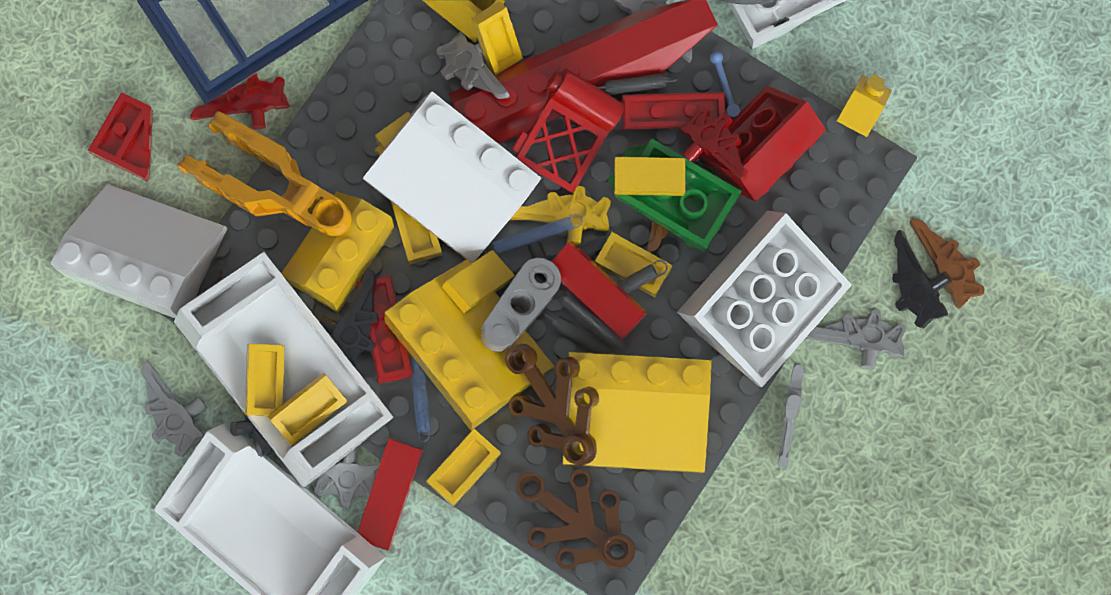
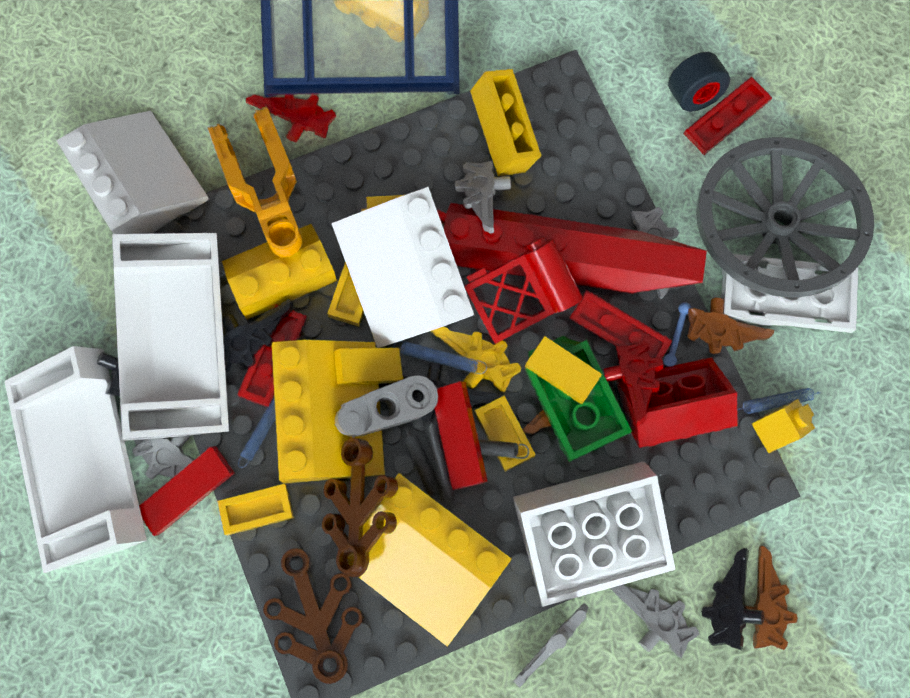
camera: 30 degrees right, 0 degrees up
(126, 137) = (188, 84): red wing -> none
(172, 419) = (69, 319): light grey piece -> none
(264, 379) = (146, 335): yellow tile -> none
(307, 409) = (163, 380): yellow tile -> none
(497, 38) = (515, 181): yellow tile -> none
(636, 84) = (603, 288): dark grey piece -> none
(760, 56) = (721, 330): none -> dark orange piece
(826, 103) = (779, 405): none -> medium blue piece

